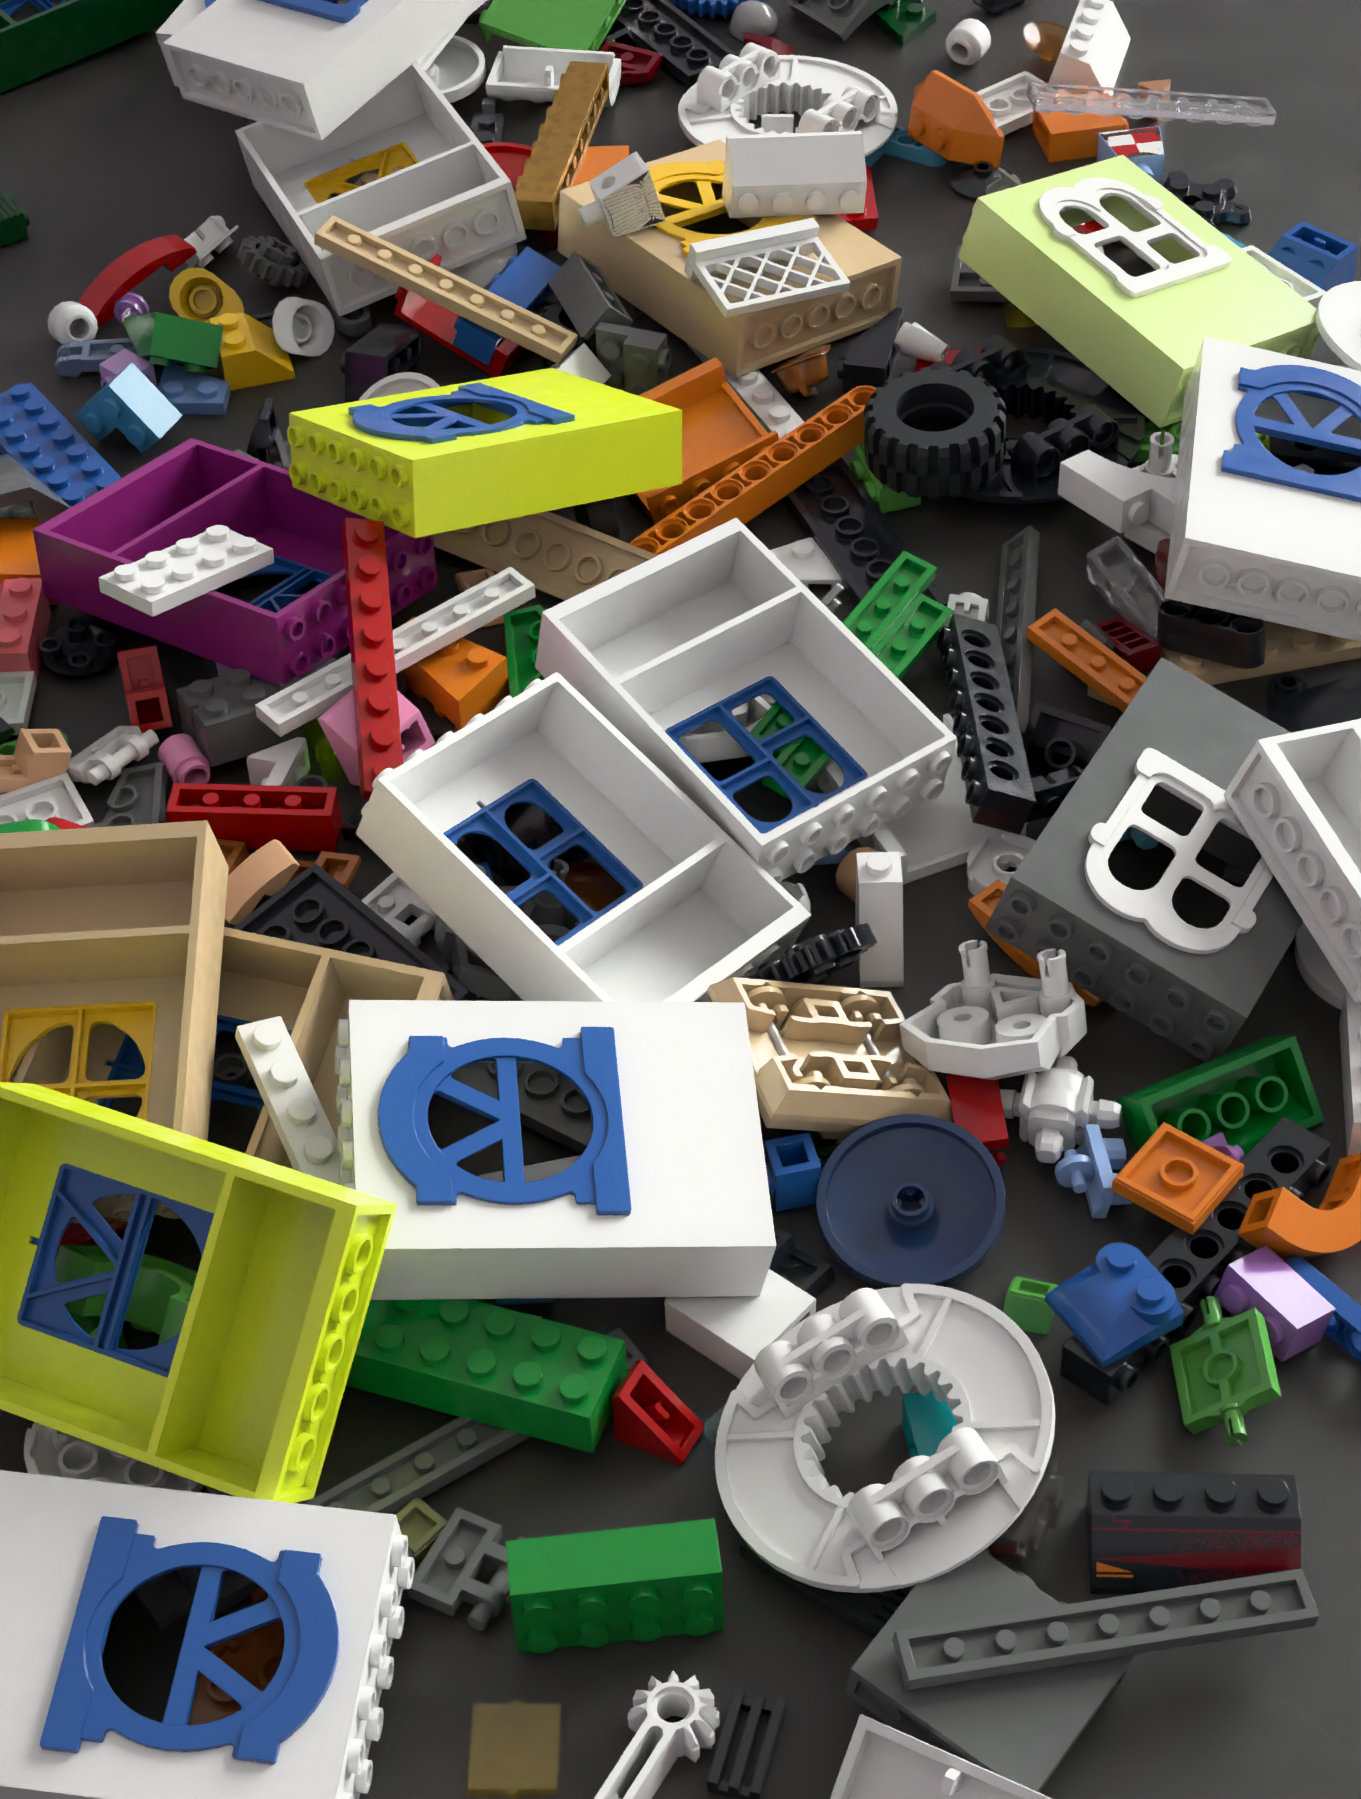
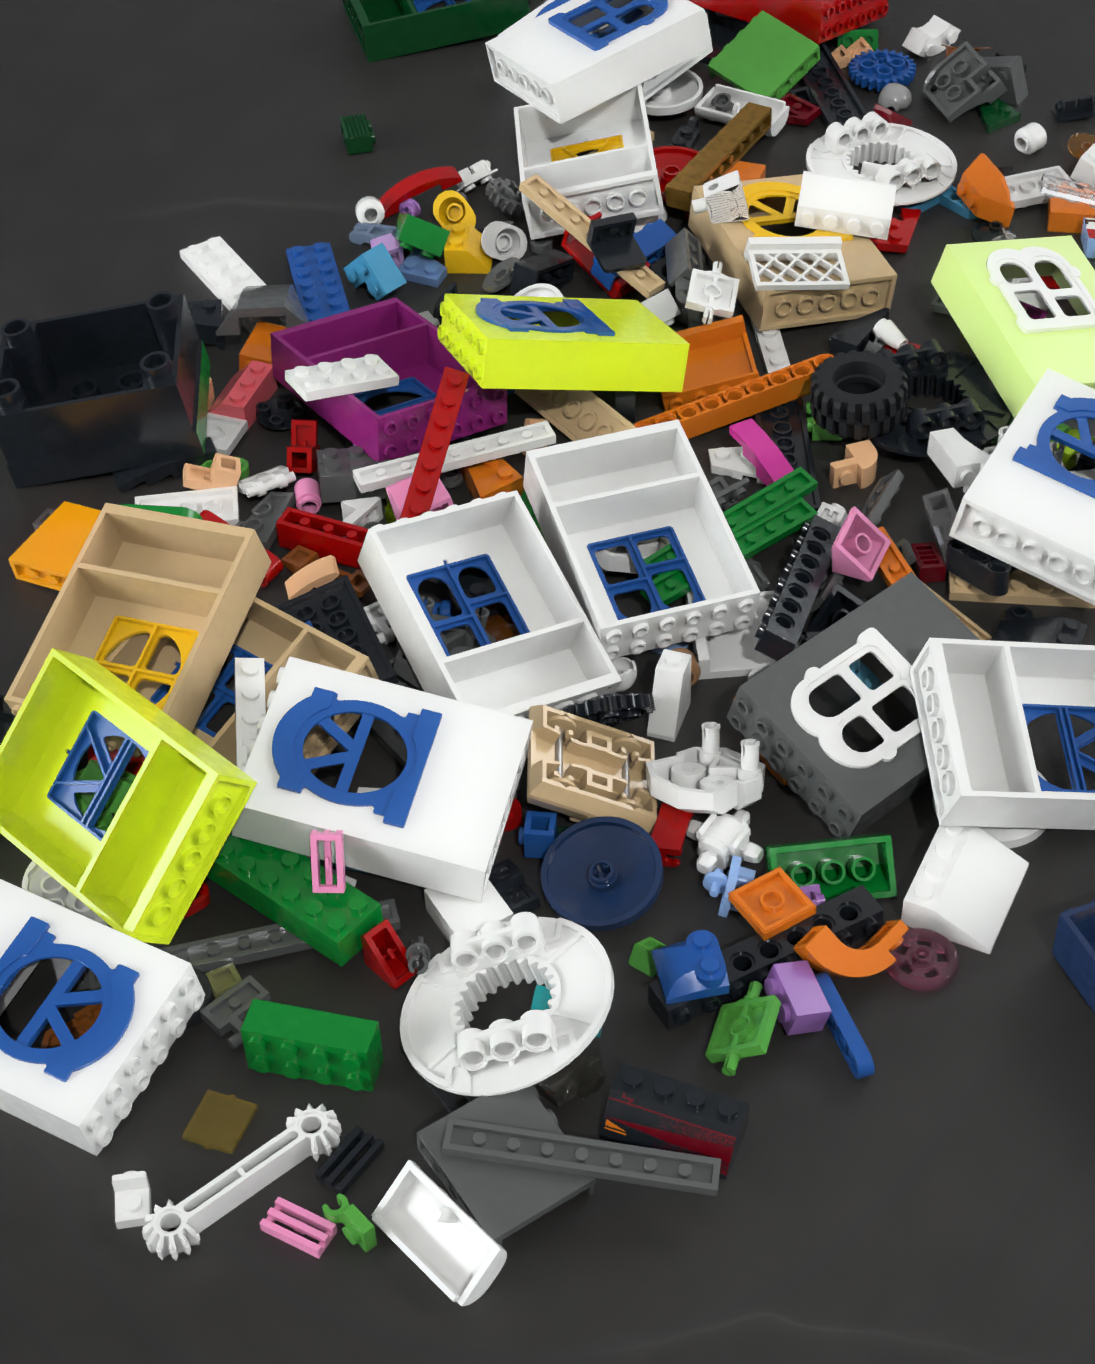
camera: 20 degrees right, 0 degrees up
(318, 376) = (500, 276): none -> dark grey dish
(488, 295) = (614, 243): none -> black bracket
(523, 65) = (722, 98): none -> dark grey plate
(524, 1260) = (327, 836): none -> bright pink tile
(662, 335) = (712, 293): none -> white plate
(703, 1402) = (418, 955): none -> dark grey axle
(804, 371) = (806, 338): dark orange piece -> none
(831, 542) = (760, 451): none -> dark pink slope
(902, 365) = (874, 346): none -> dark grey plate
(964, 534) = (857, 467): none -> light nougat brick
(1044, 646) = (858, 547): none -> bright pink slope

